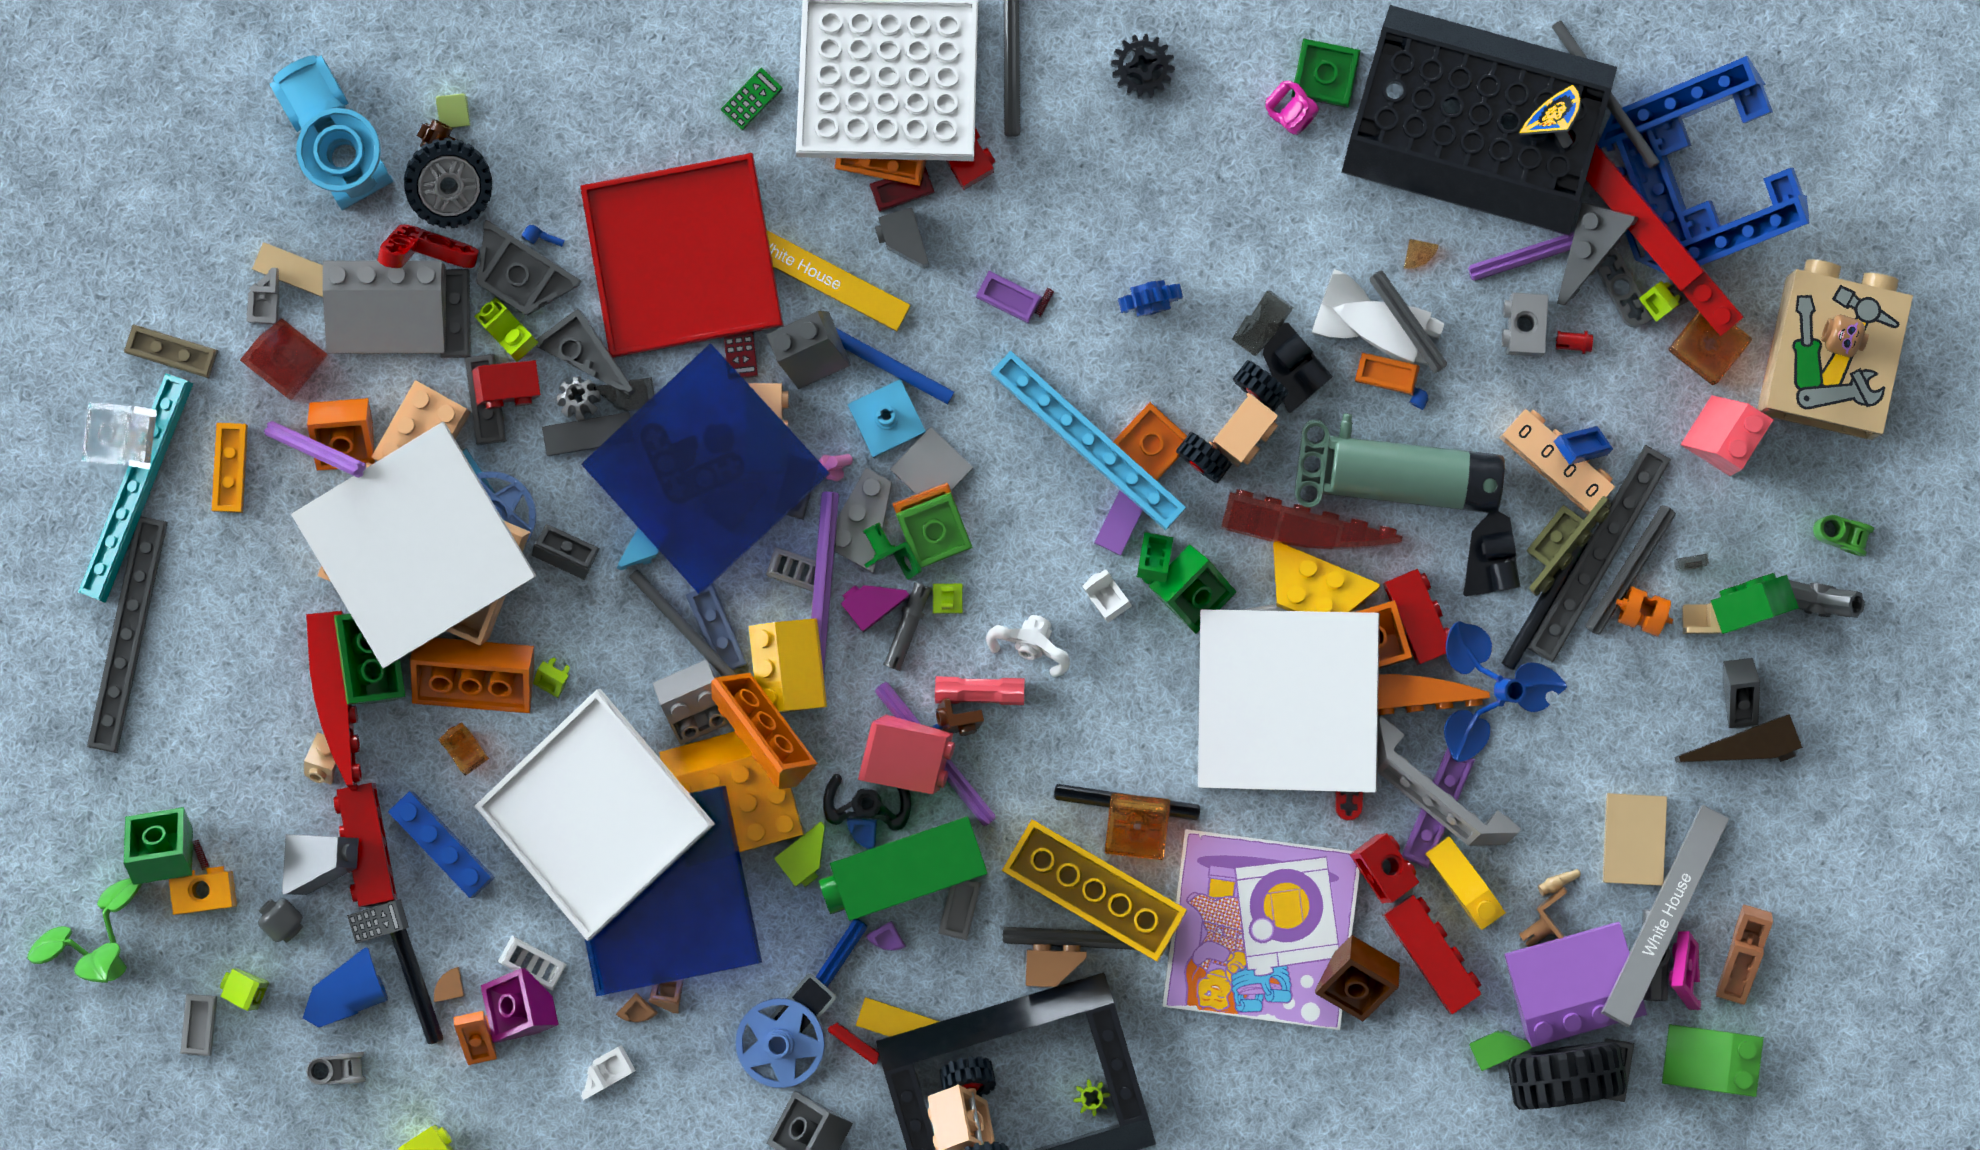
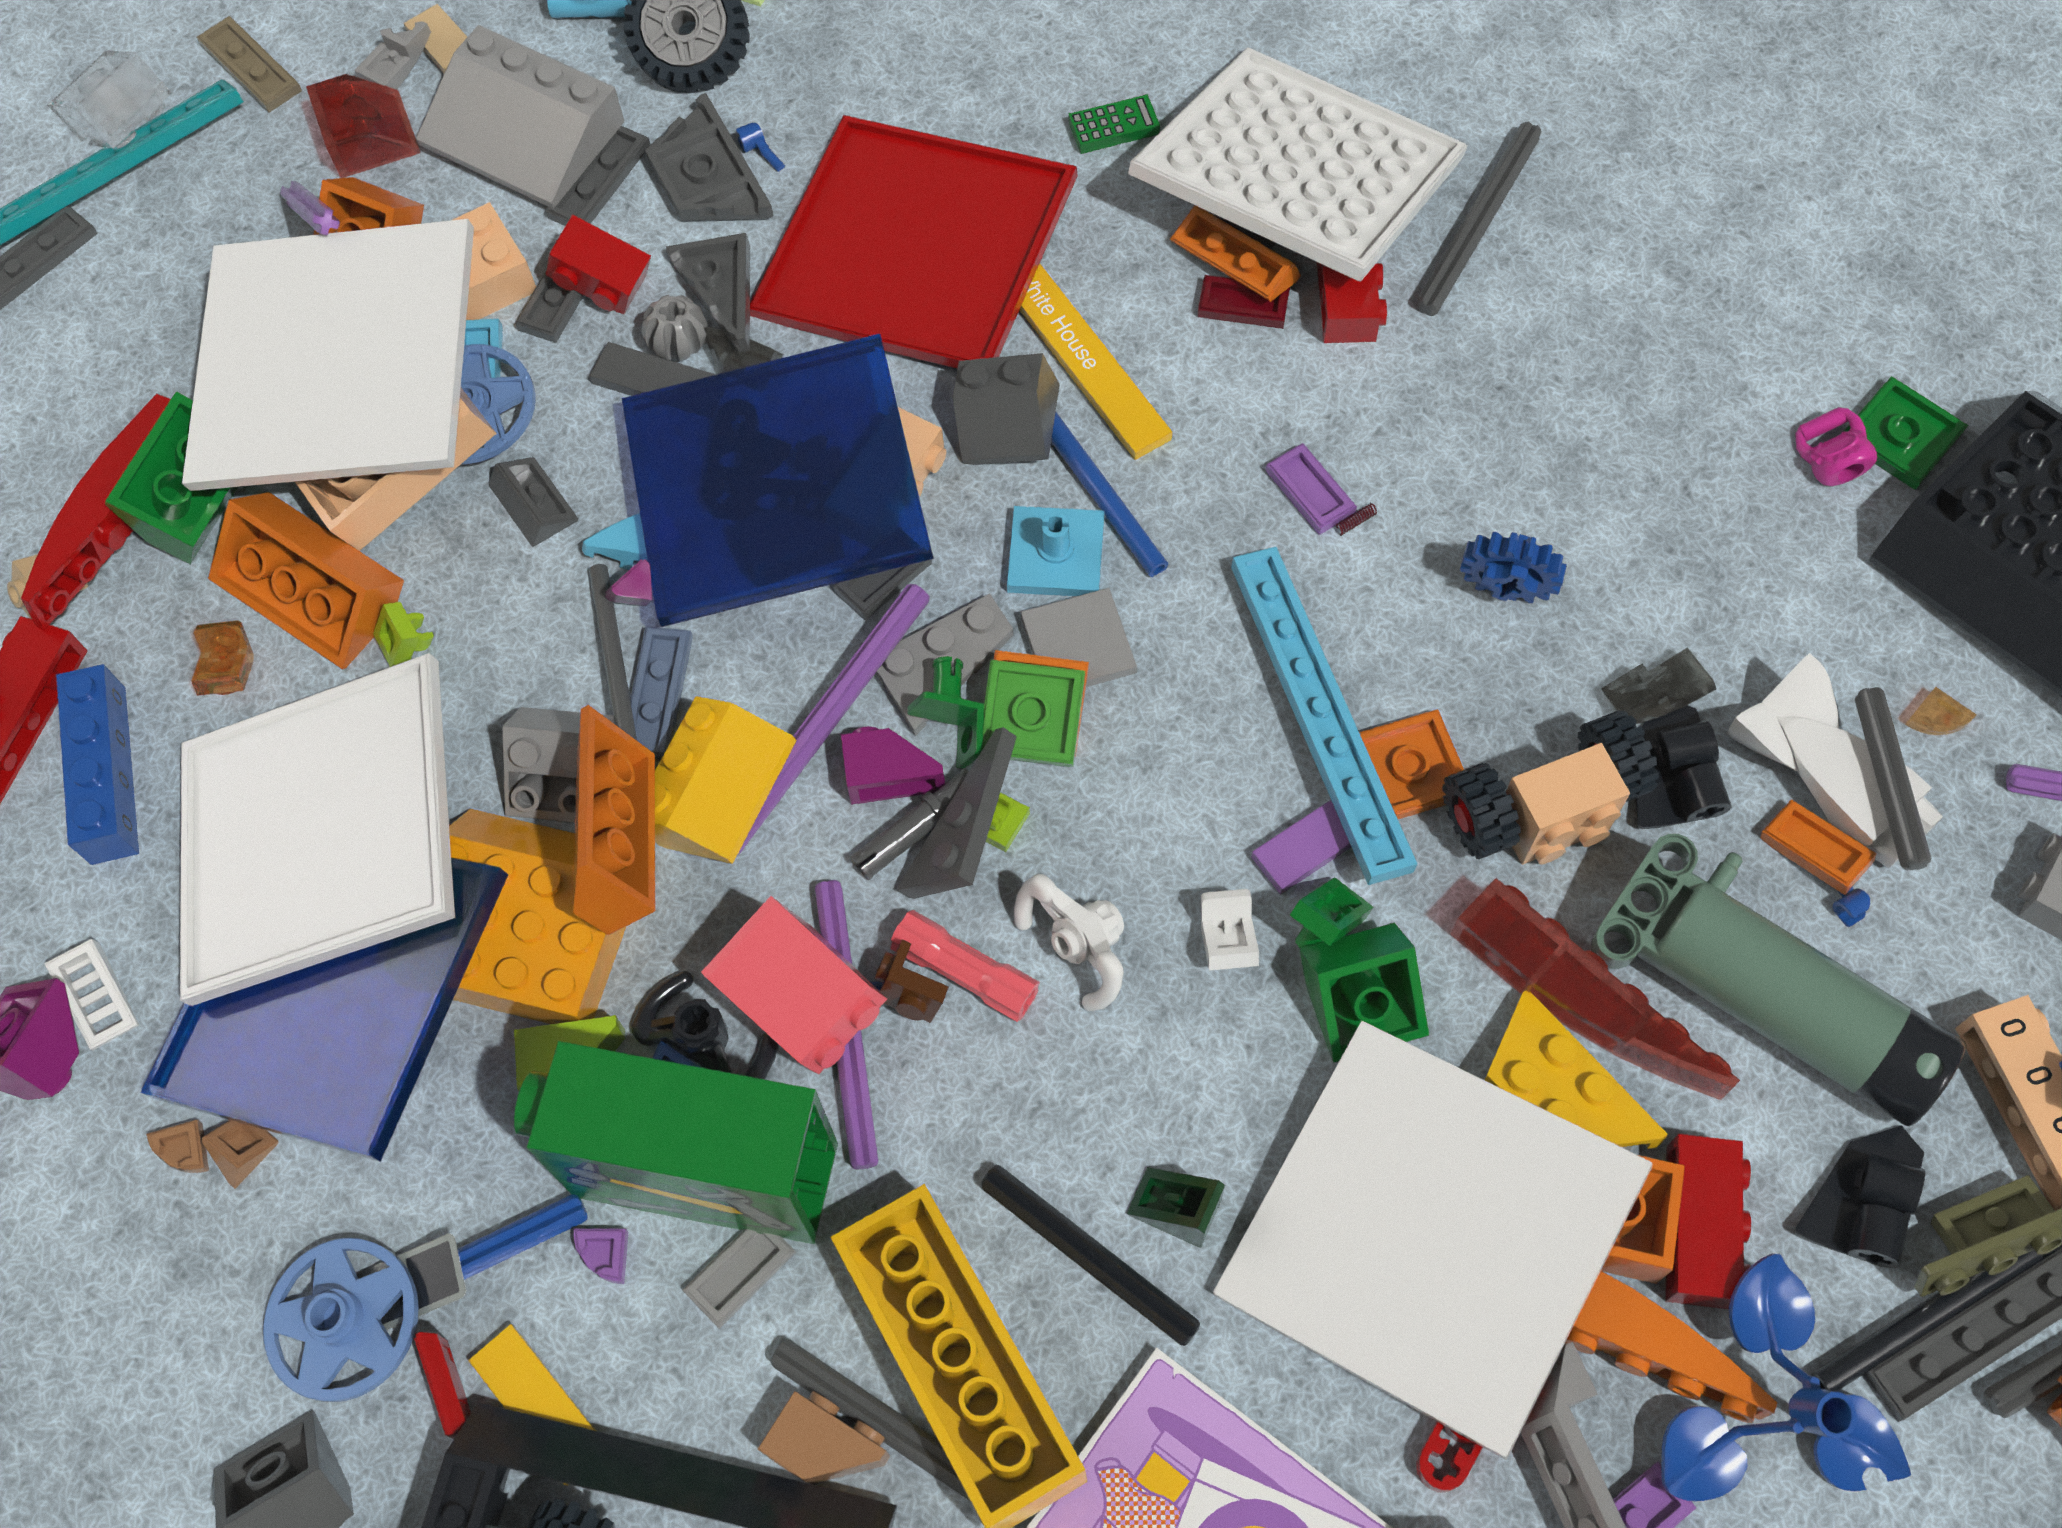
camera: 30 degrees right, 20 degrees down
(229, 467) = (210, 205): light orange plate -> none
(410, 239) = (594, 64): red beam -> none
(506, 329) = (644, 215): lime slope -> none
(607, 1070) = (74, 1212): white slope -> none
(667, 578) = (633, 586): none -> magenta slope
(741, 354) = (917, 383): dark red tile -> none
(774, 564) = (794, 652): light grey slope -> none
(835, 464) = (949, 569): bright pink plate -> none
(902, 236) = (1211, 347): dark grey slope -> none
(938, 628) = (958, 839): none -> dark grey wing
(1144, 842) = (1050, 1299): clear orange brick -> none
(1146, 78) = (1648, 306): black gear -> none
(1156, 754) = (1177, 1203): none -> dark green slope

